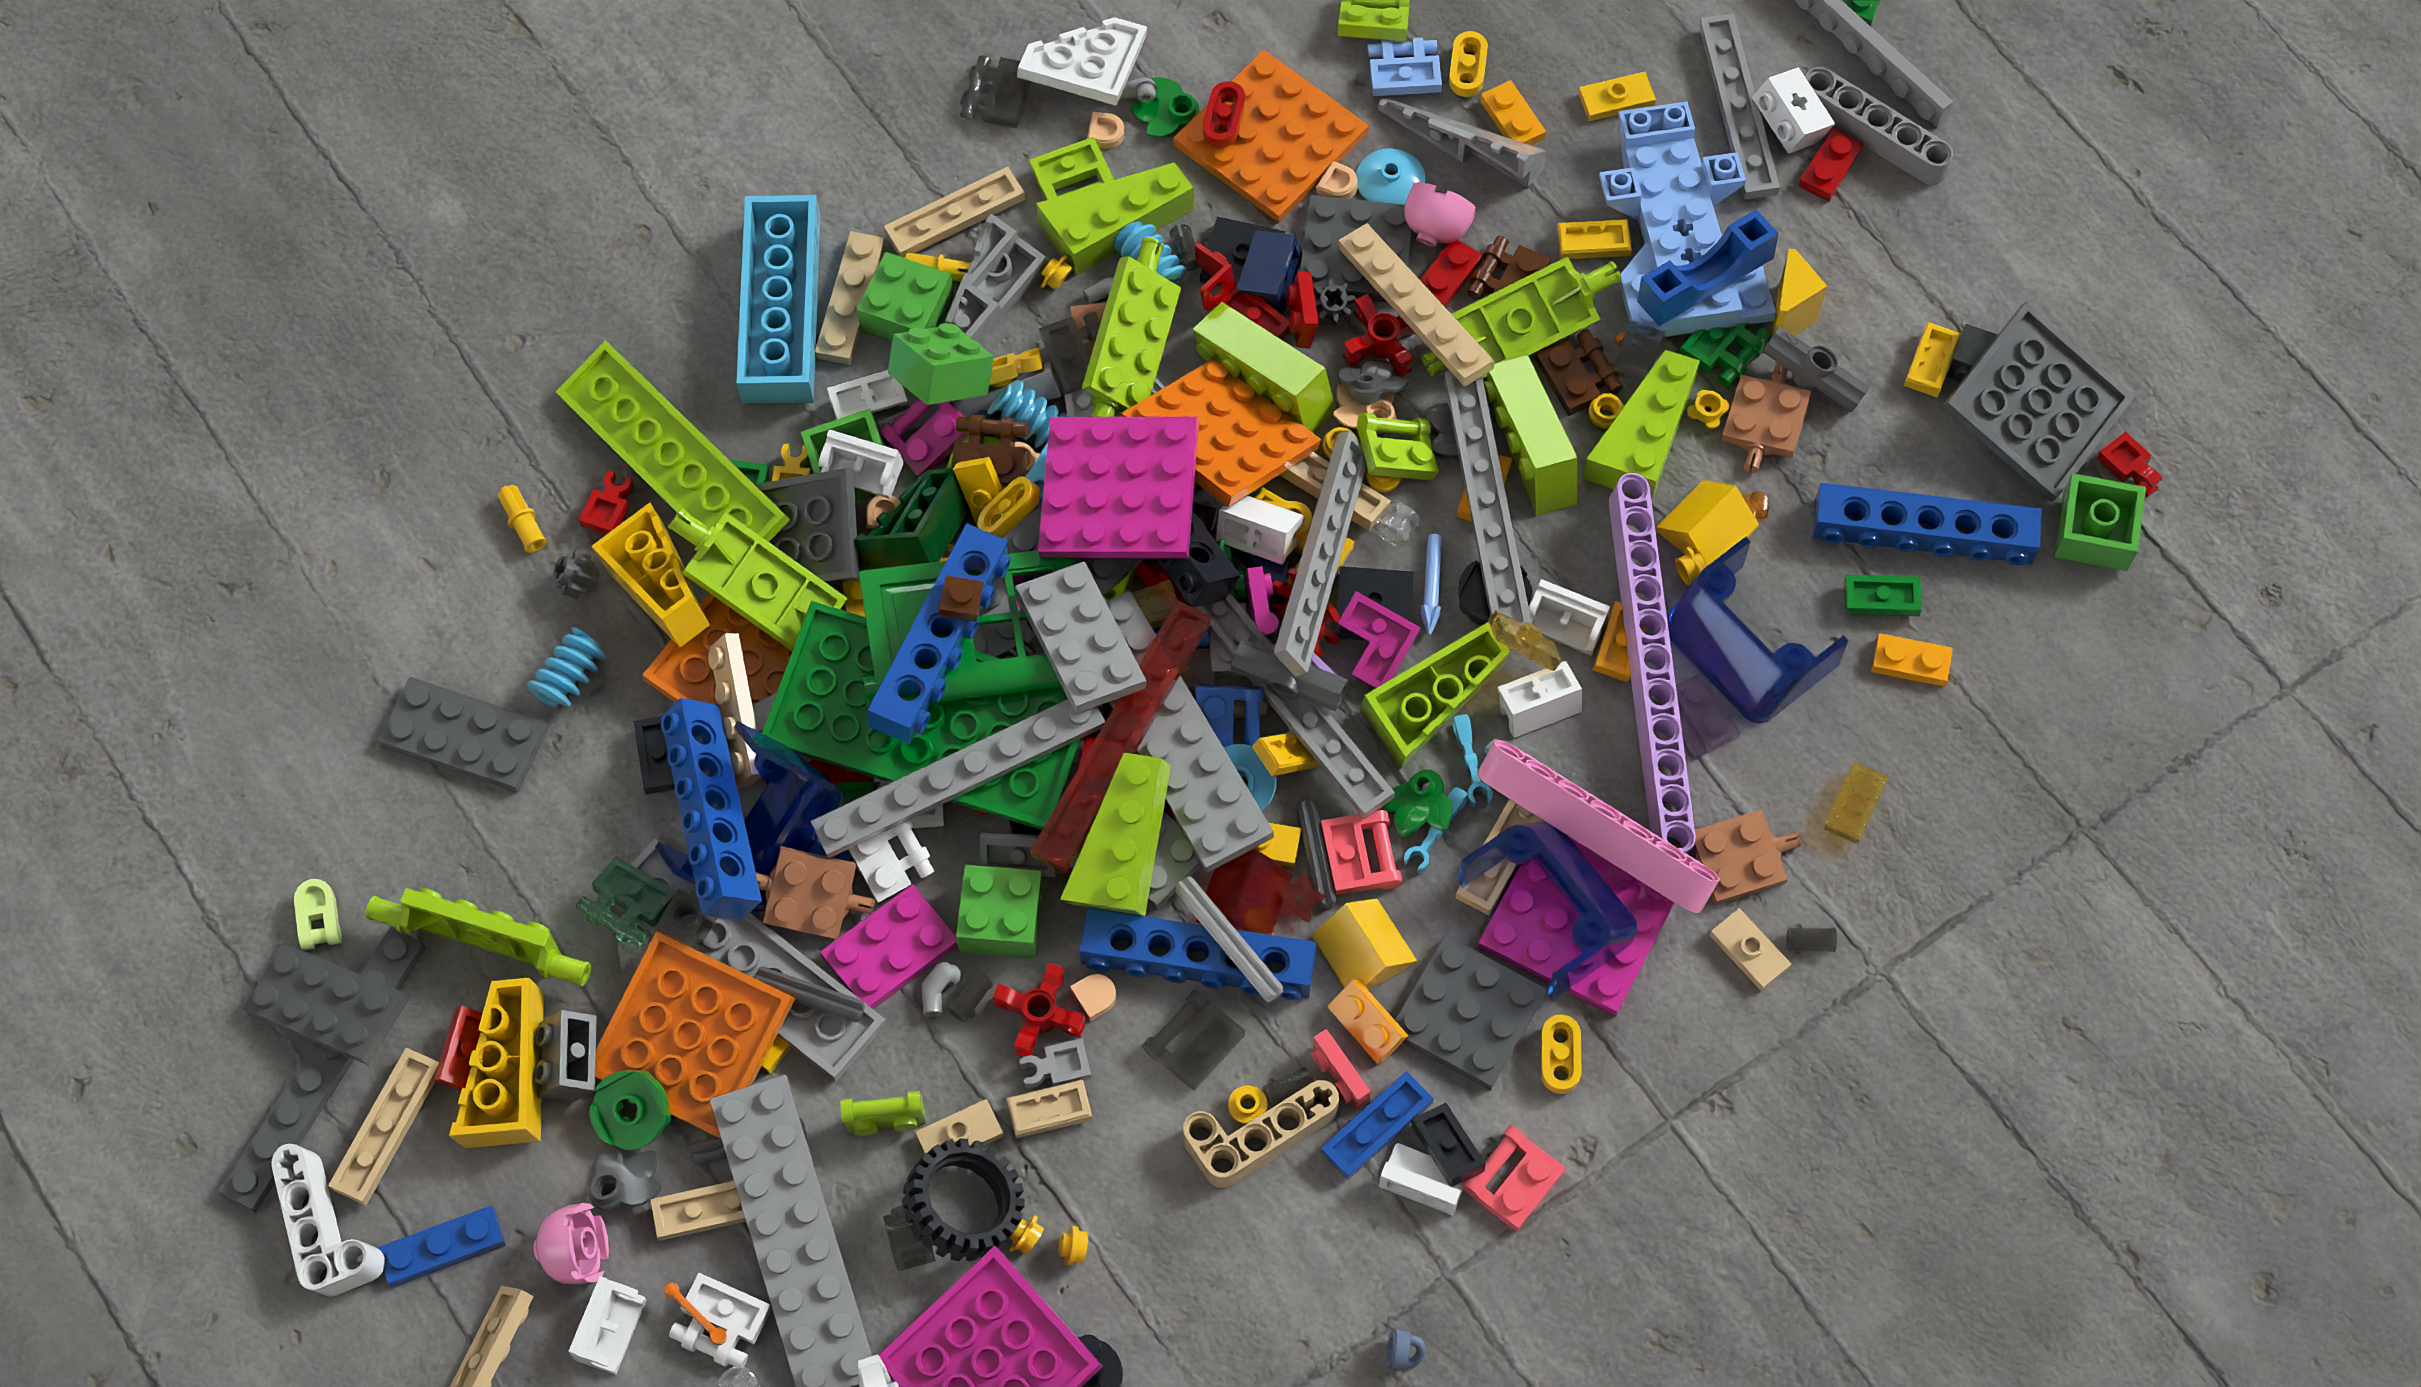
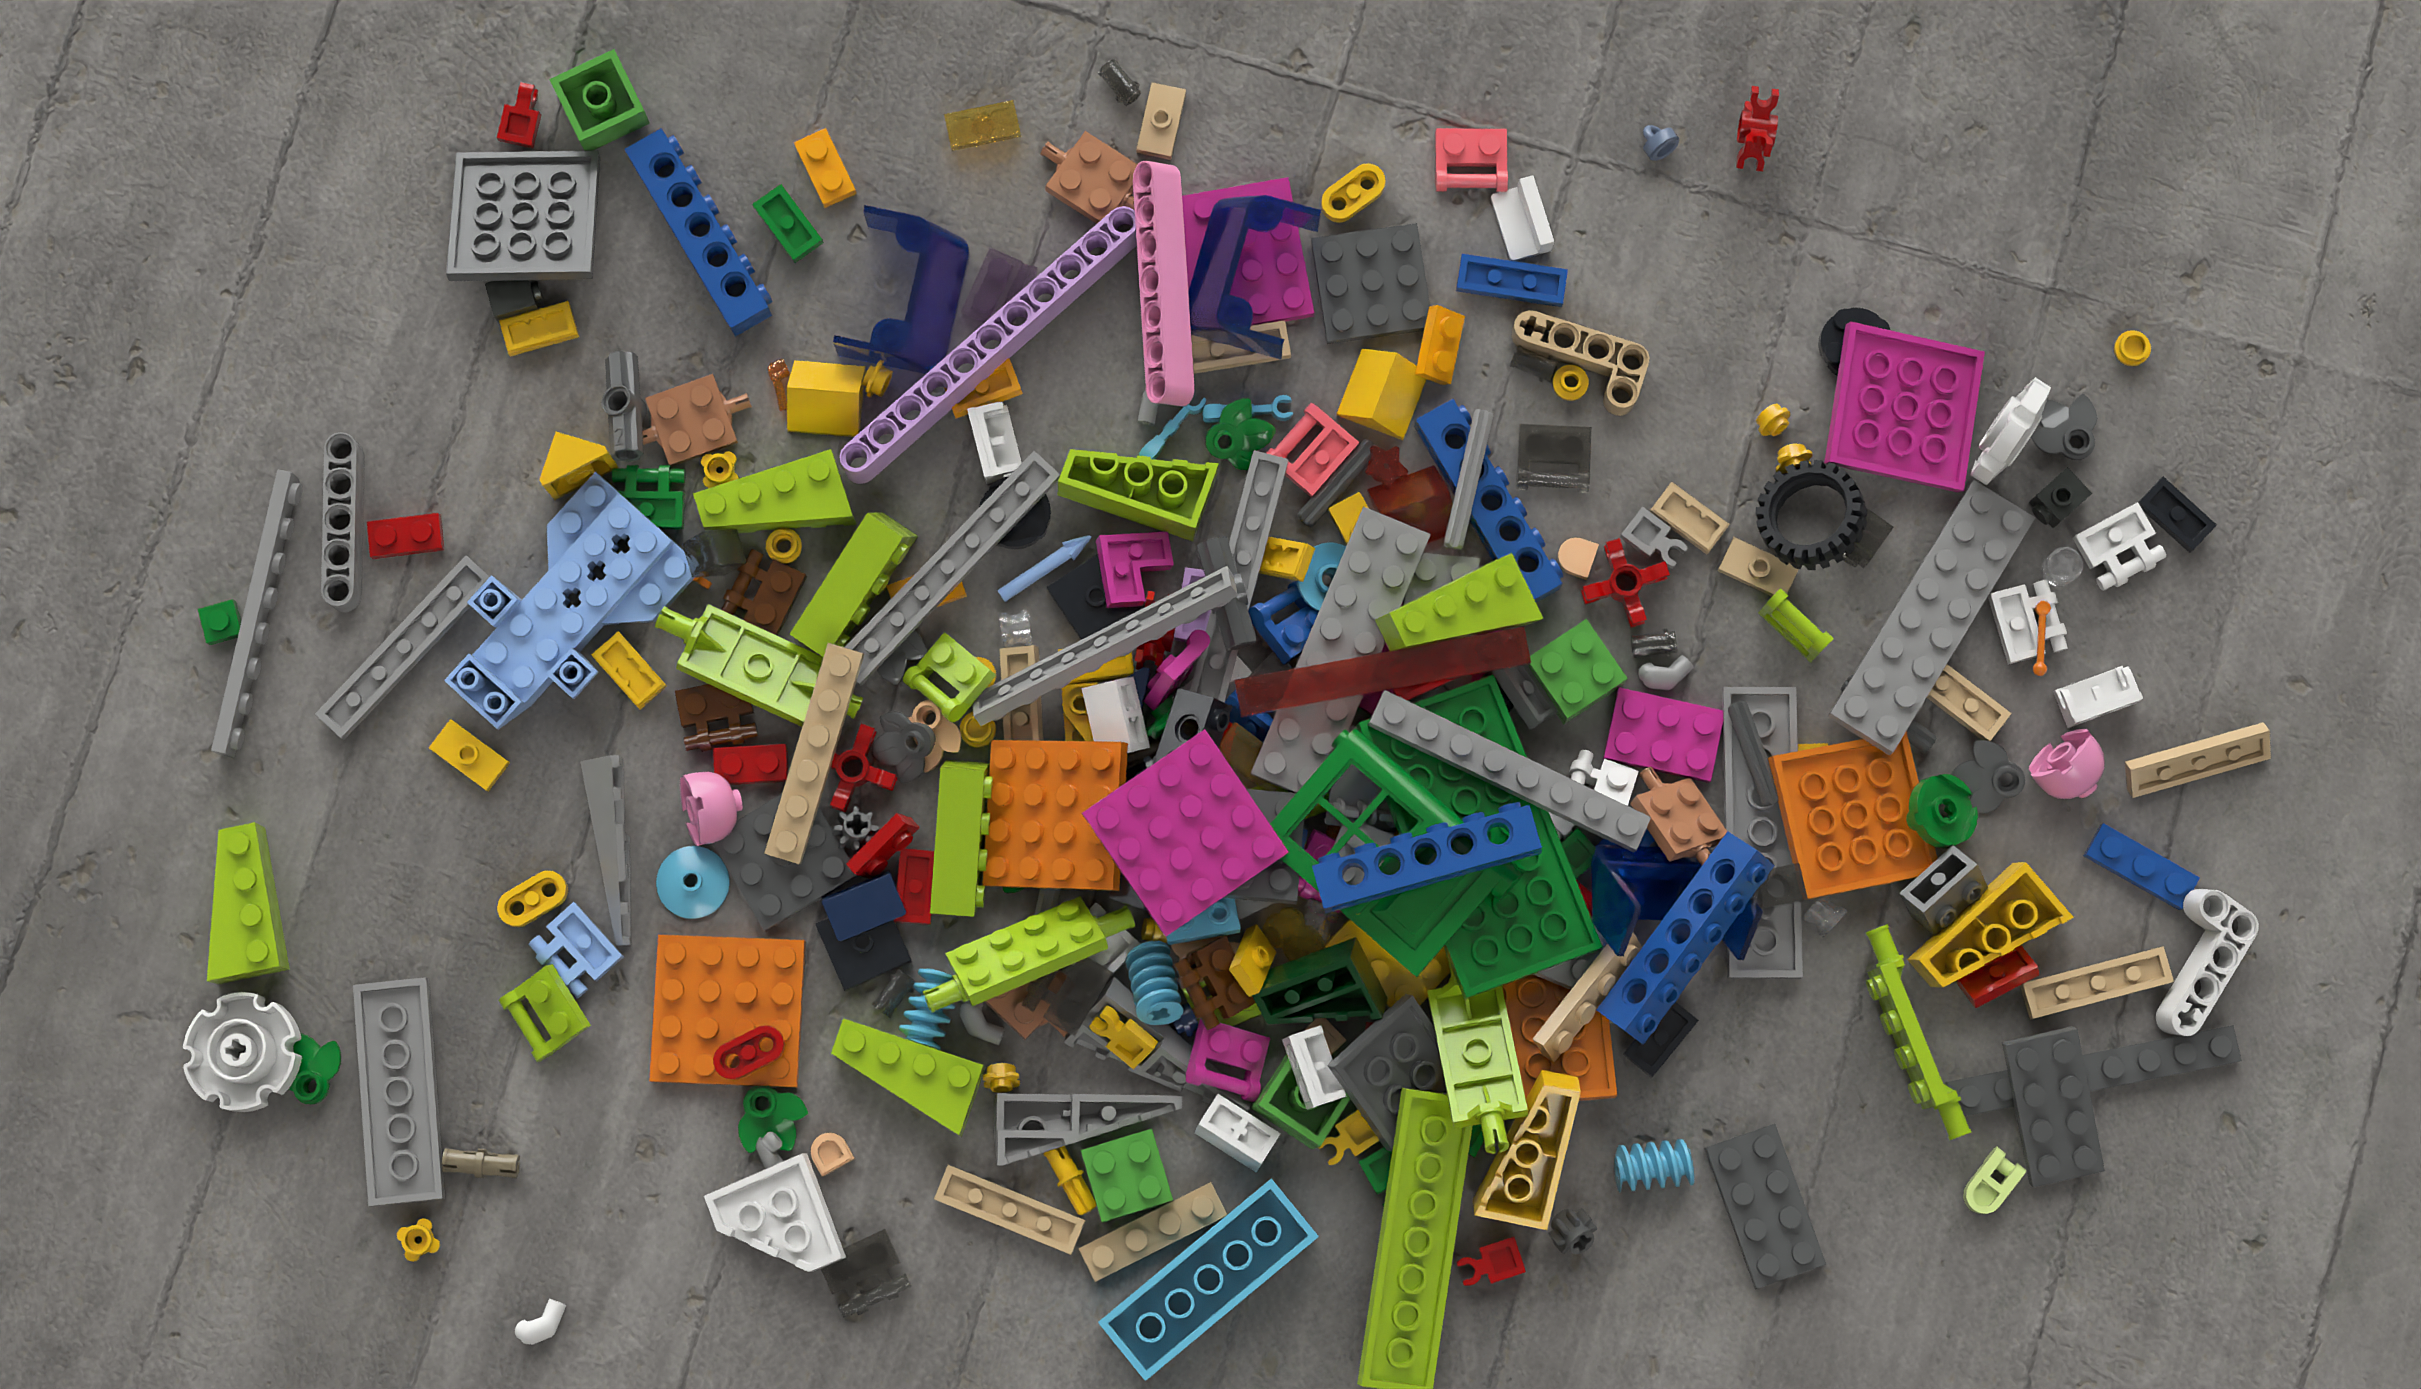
camera: 130 degrees left, 15 degrees up
(522, 519) = (1558, 1323): yellow axle -> none
(632, 891) = (1788, 945): clear green plate -> none
(940, 364) = (1177, 1077): bright green brick -> none
(961, 598) = (1393, 854): reddish brown plate -> none
(1009, 507) = (1255, 918): yellow plate -> none
(1069, 166) = (892, 1151): lime plate -> none
(1080, 637) = (1334, 759): light grey plate -> none
(1220, 269) = (898, 940): red bracket -> none
(1331, 1058) = (1499, 321): coral plate -> none
(1338, 182) = (732, 918): light nougat tile -> none
(1448, 1145) = (1487, 218): black plate -> none
(1512, 114) = (554, 826): light orange plate -> none
(1525, 640) = (1053, 444): clear yellow plate -> none
(1540, 699) = (1081, 410): white hinge -> none
(1738, 252) = (613, 533): blue arch -> none
(1793, 110) = (382, 593): white brick -> none

